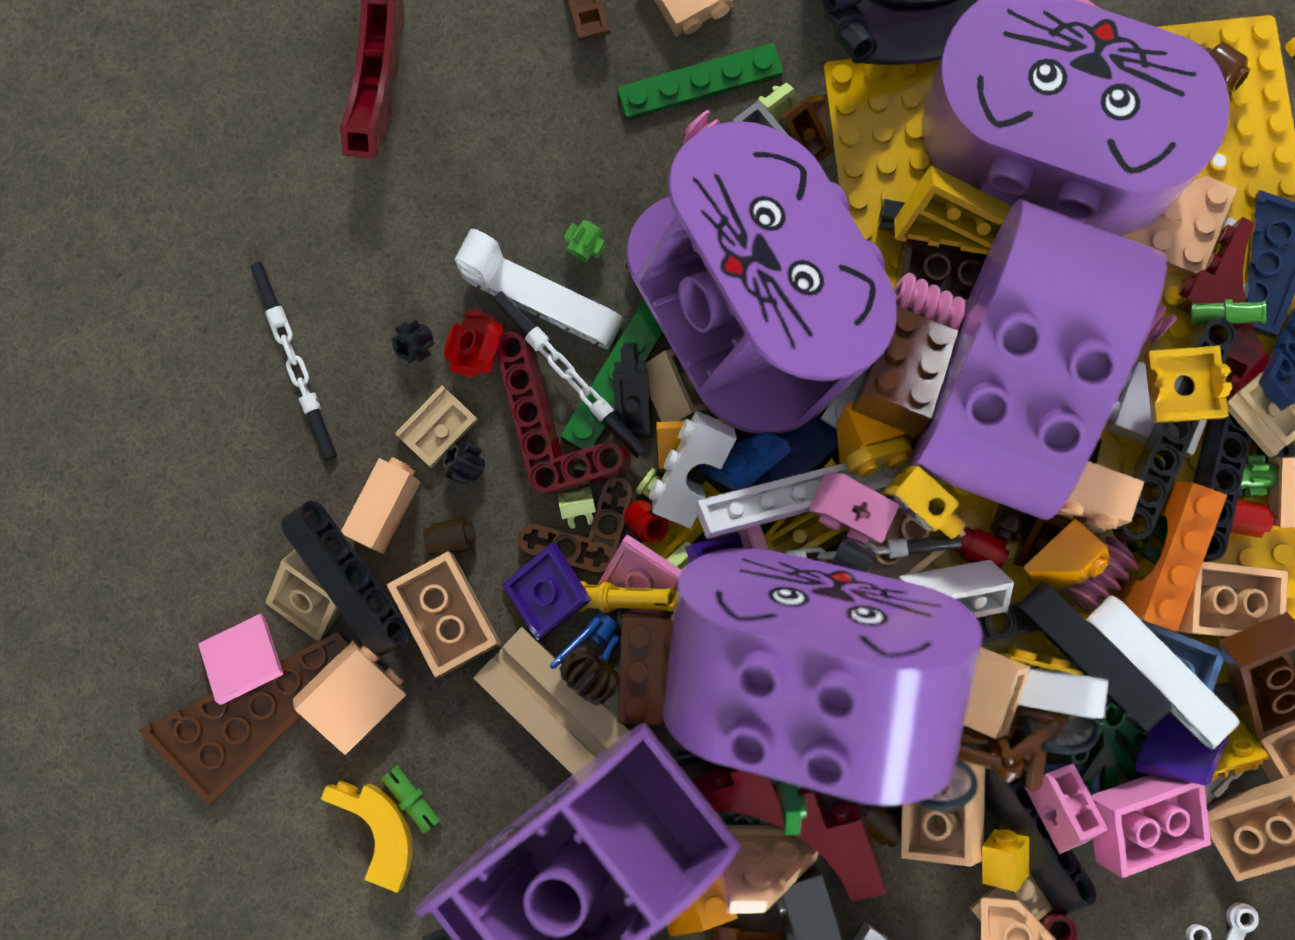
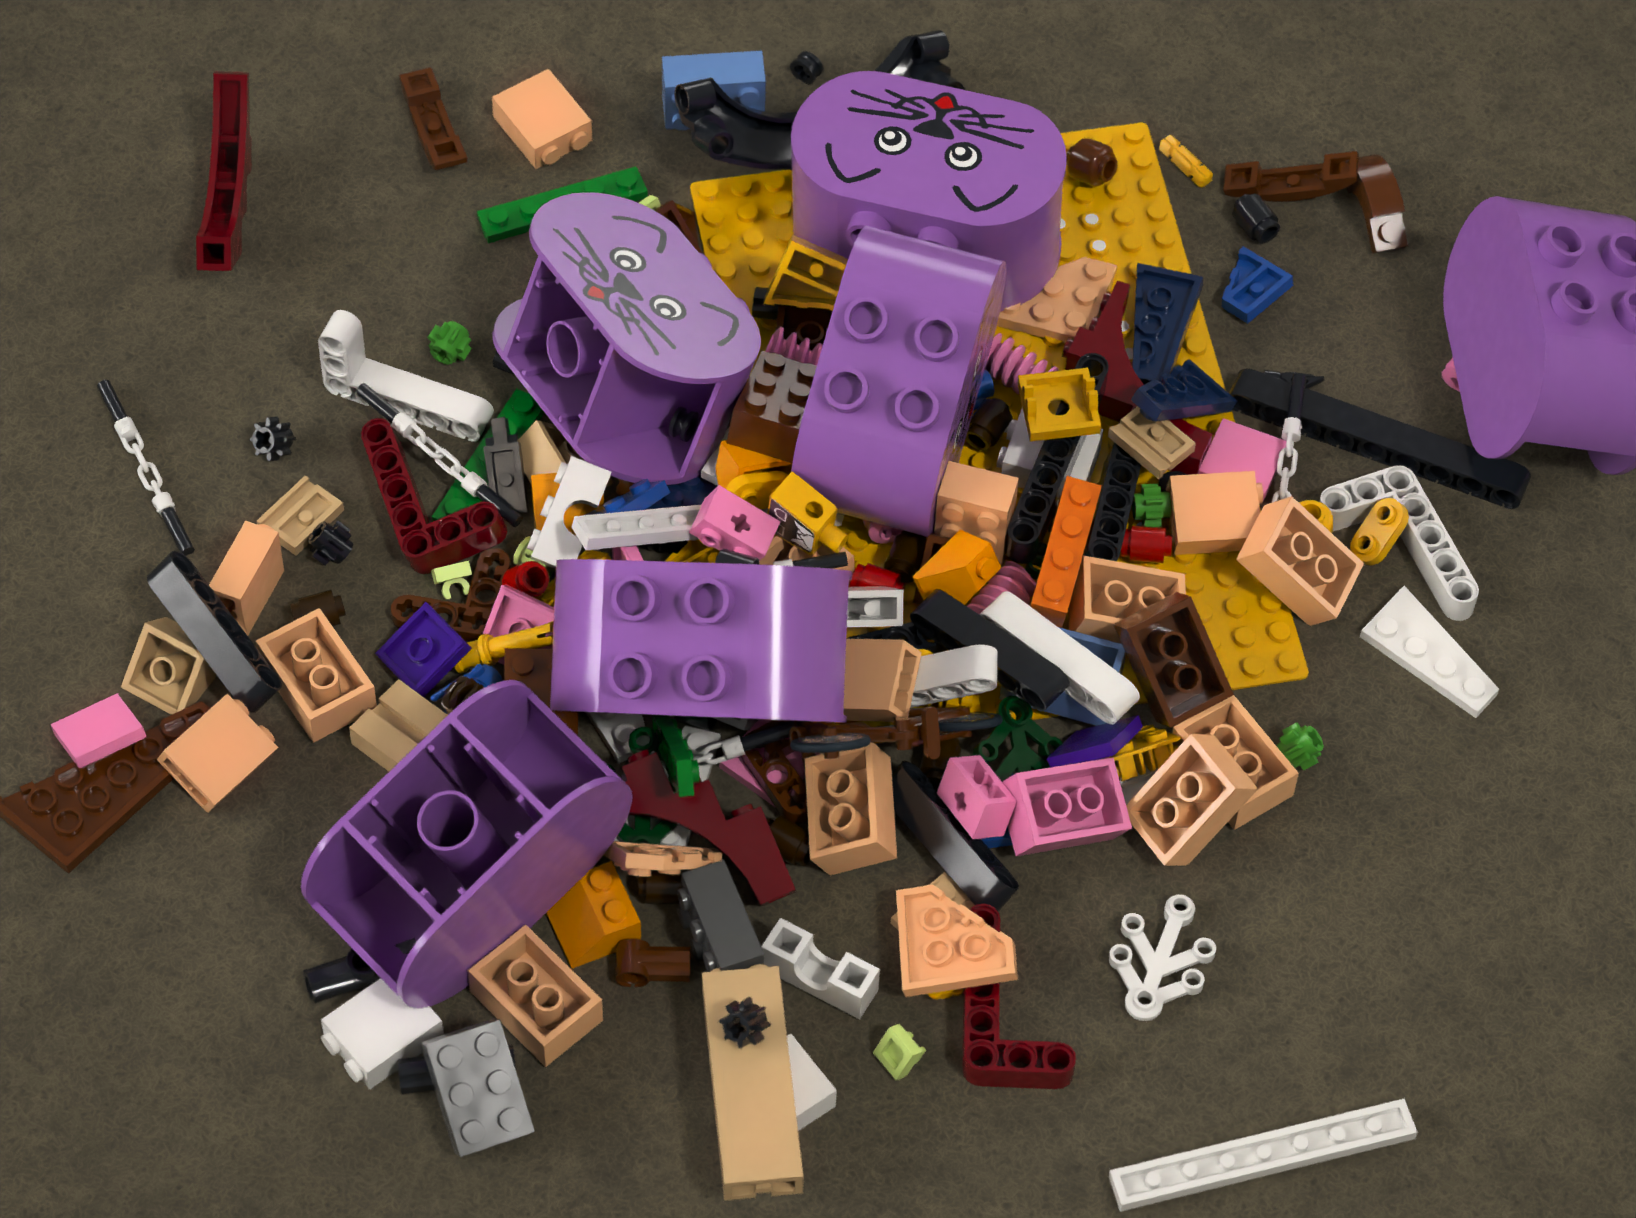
camera: 10 degrees left, 25 degrees down
(390, 831) = (247, 857): yellow arch -> none
(410, 799) = (283, 850): bright green pin -> none
(483, 333) = (337, 435): red plate -> none
(1005, 860) = (920, 855): yellow brick -> none
(1233, 312) = (1115, 354): bright green pin -> none

